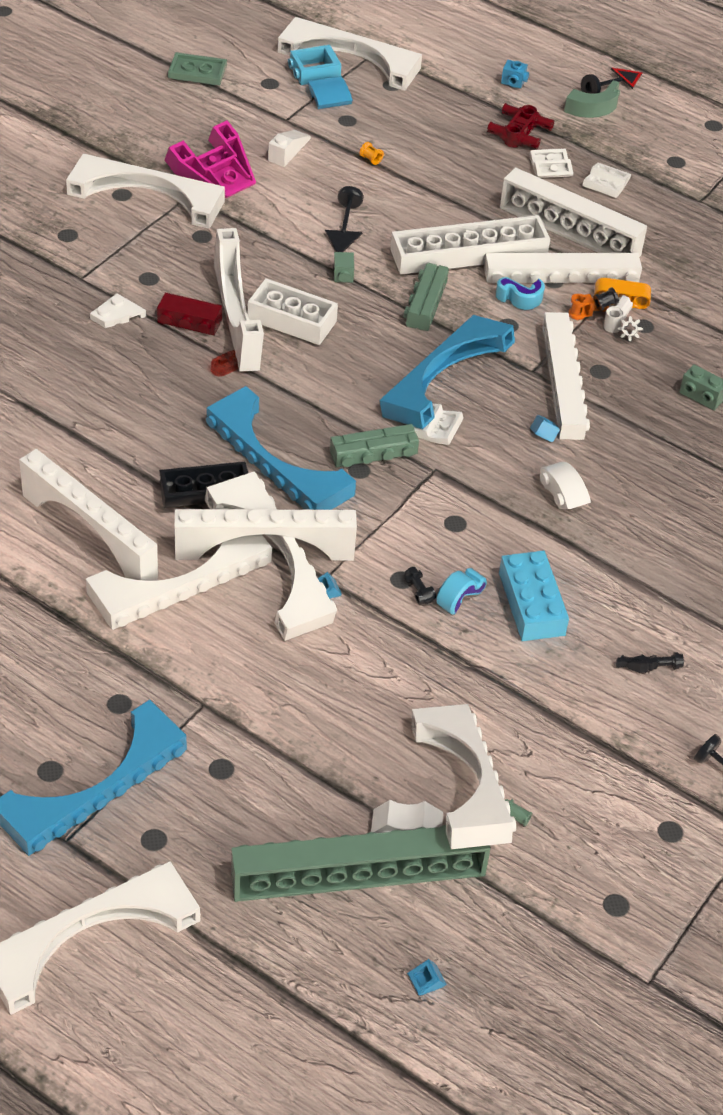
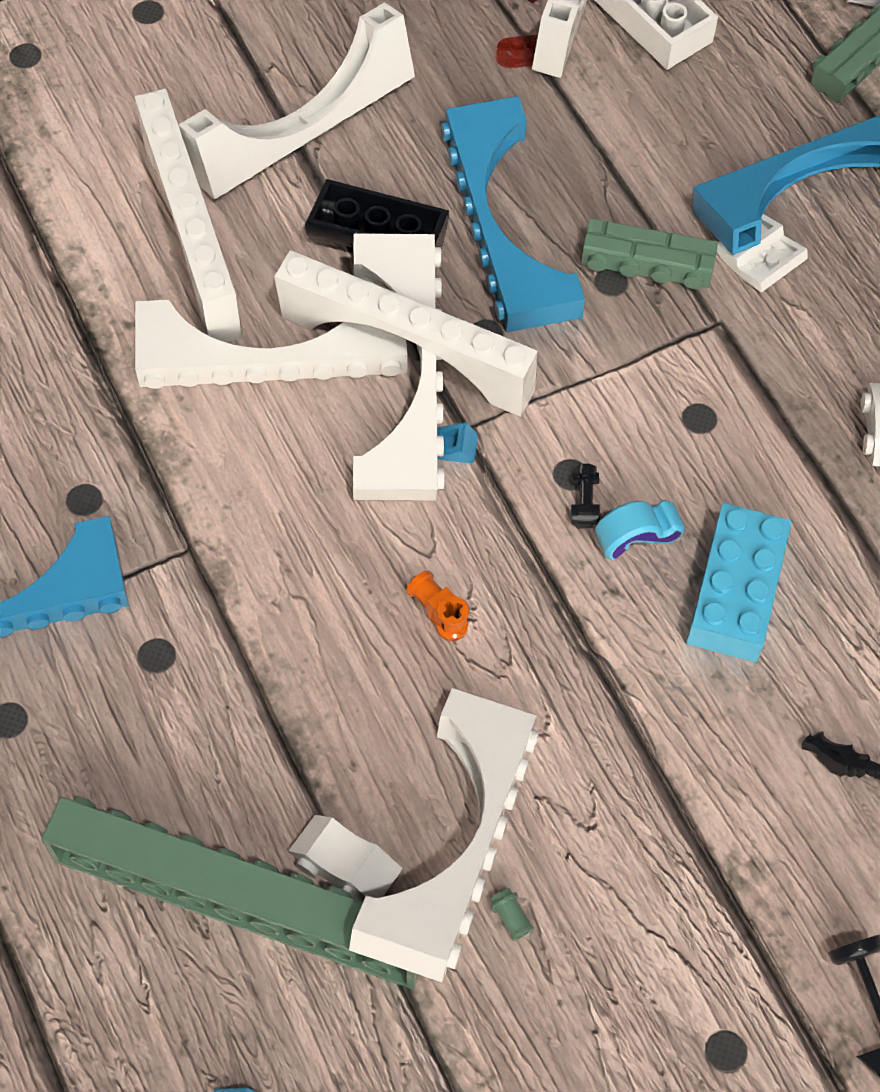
camera: 30 degrees right, 15 degrees up
(147, 400) = (374, 66): none -> white arch
(375, 673) = (443, 607): none -> orange connector

